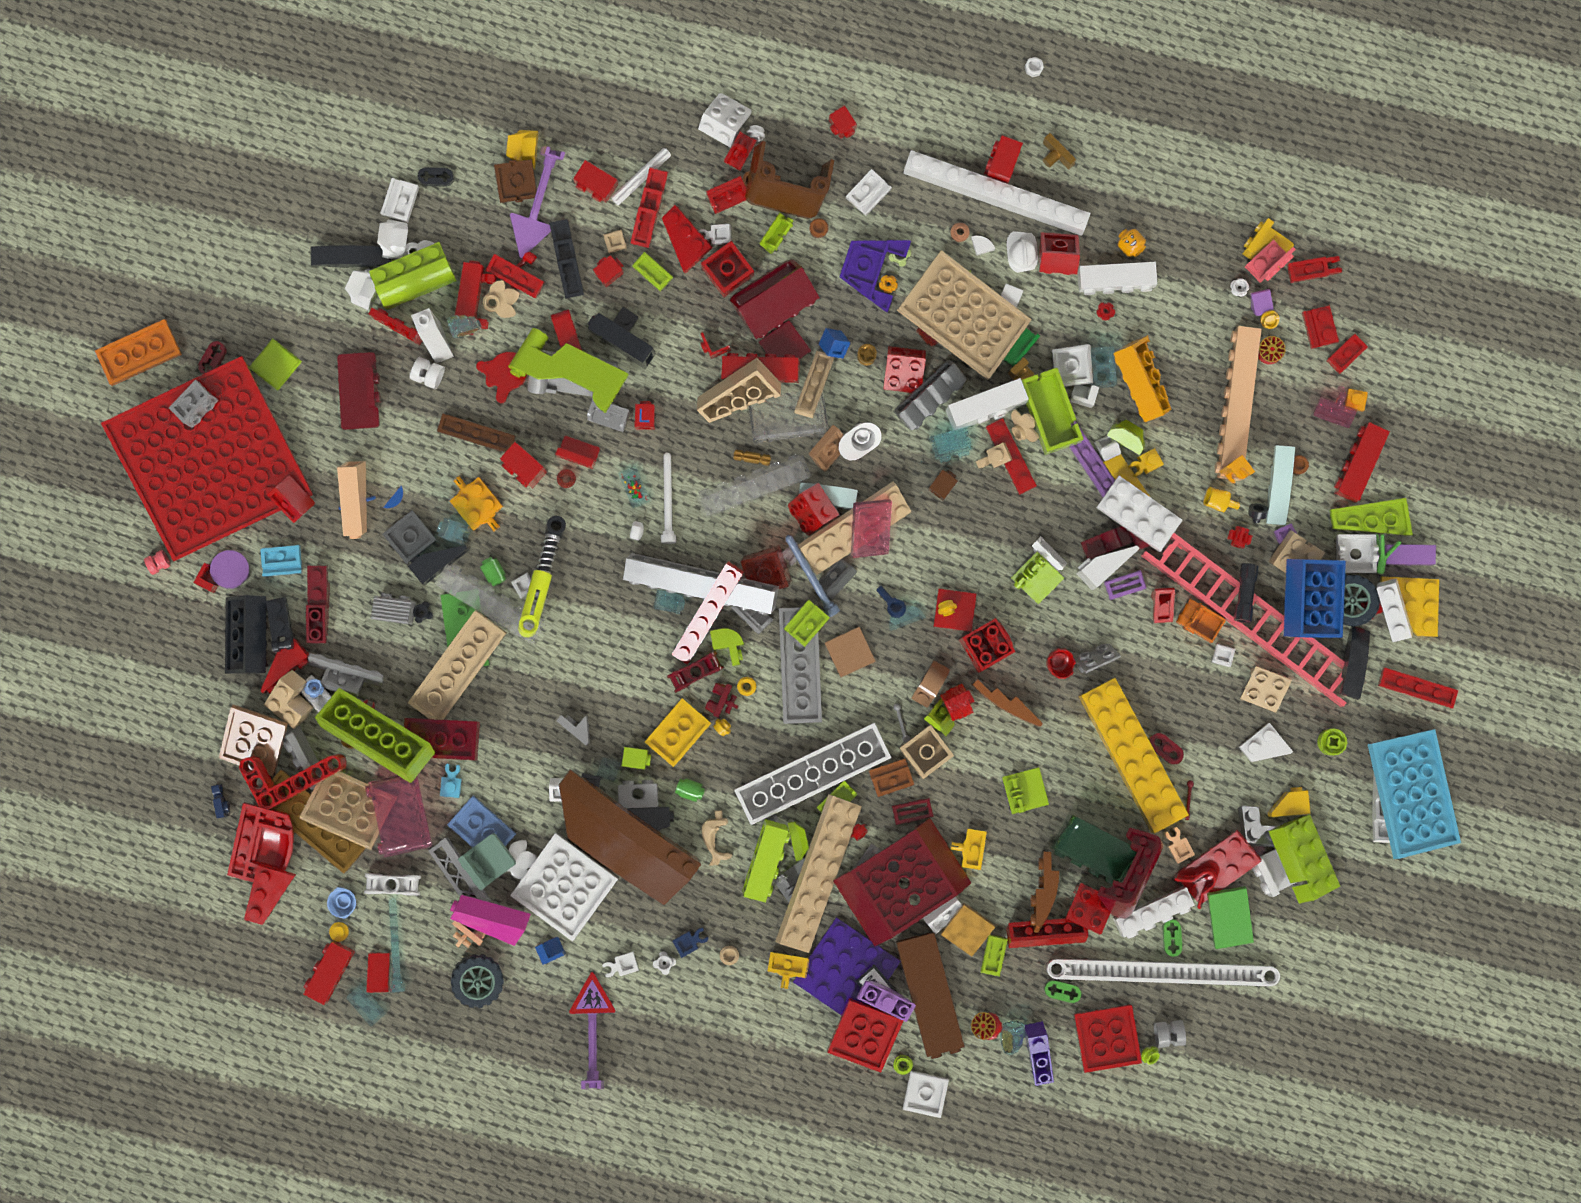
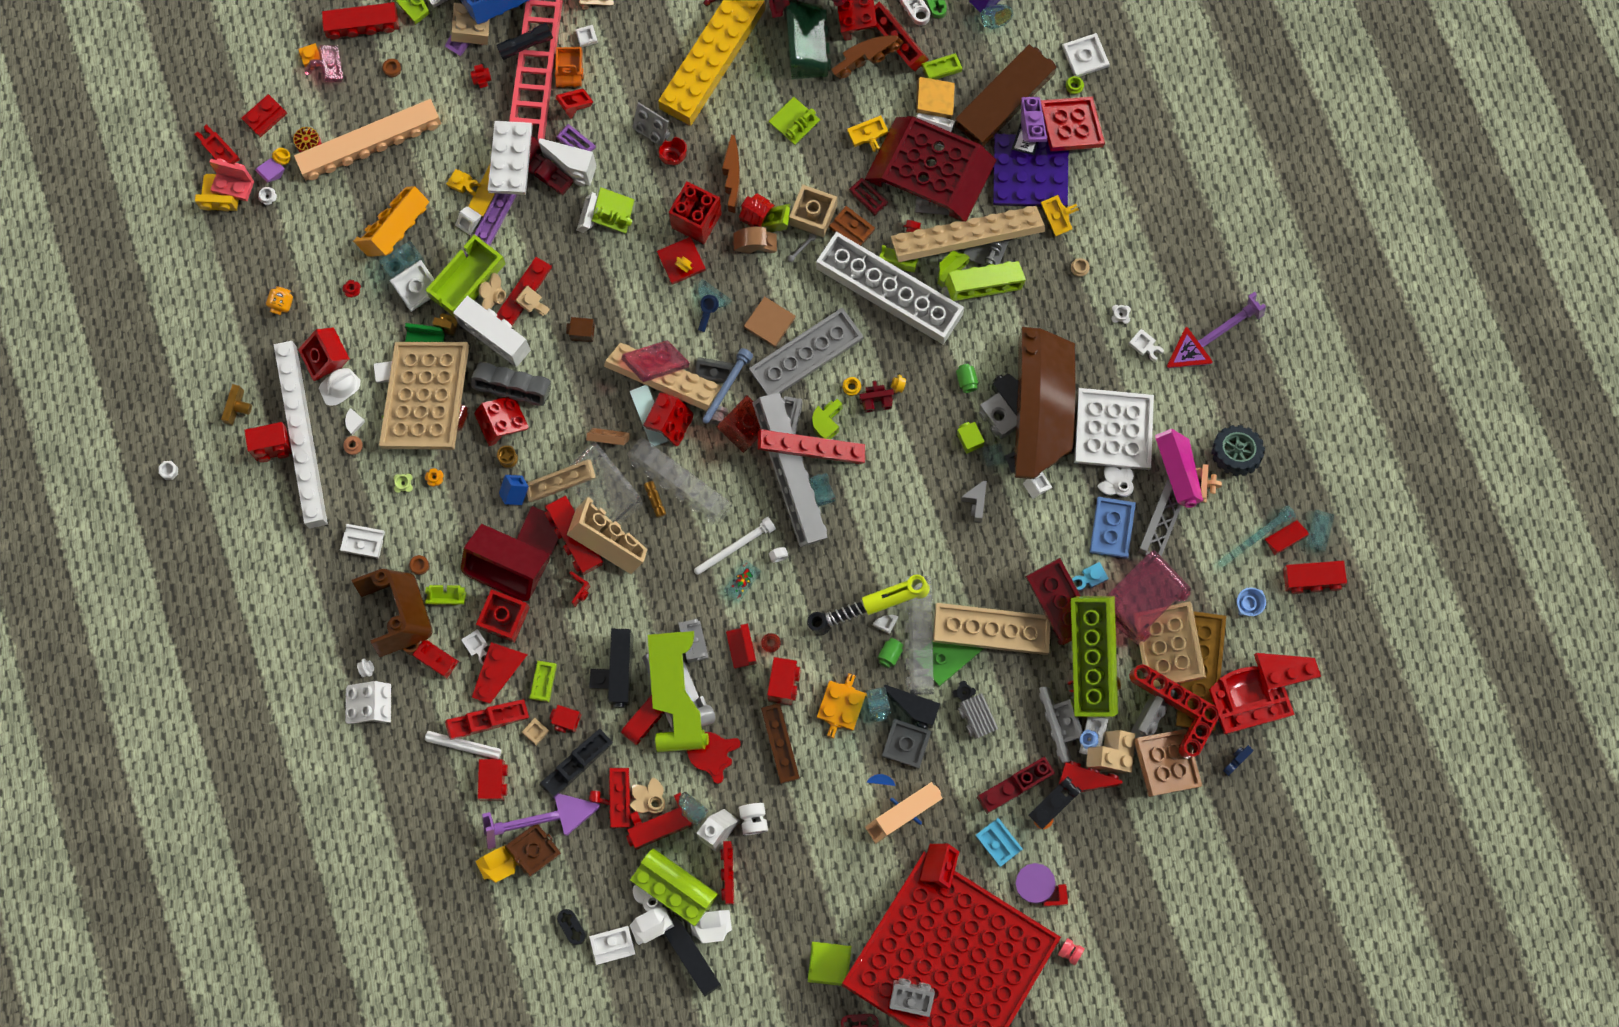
camera: 115 degrees left, 10 degrees down
(245, 634) = (1083, 831): black slope -> none
(339, 931) = (1276, 590): yellow plate -> none
(358, 391) = (806, 871): dark red bracket -> none
(380, 884) = (1204, 559): white piece -> none
(487, 861) = (1135, 501): sand green bracket -> none
(550, 950) = (1173, 408): blue panel -> none
(645, 416) = (674, 608): red brick -> none
(677, 732) = (926, 417): yellow plate -> none
(687, 679) = (878, 440): dark red piece -> none
(687, 943) = (1092, 305): dark blue plate -> none
(709, 830) = (989, 344): tan animal -> none
(740, 151) = (390, 670): red hips -> none
(806, 623) = (768, 365): lime plate -> none
(842, 123) = (312, 599): red brick -> none
(859, 441) = (585, 417): white piece -> none
(864, 266) = (427, 505): dark purple wing -> none
(951, 444) = (543, 344): clear light blue brick -> none
(986, 1026) = (1001, 39): red wheel -> none
(1084, 395) = (434, 261): white panel -> none
(1117, 277) = (316, 294): white brick -> none
(1128, 435) = (448, 209): slope -> none
(1166, 748) = (688, 35): dark red plate -> none
(1219, 500) = (459, 109): yellow piece -> none
(1239, 467) = (424, 103): light orange hinge -> none
(1258, 512) = (451, 74): black tile -> none
(1280, 485) = (417, 69): light aqua slope -> none
(1347, 353) = (274, 82): red plate -> none

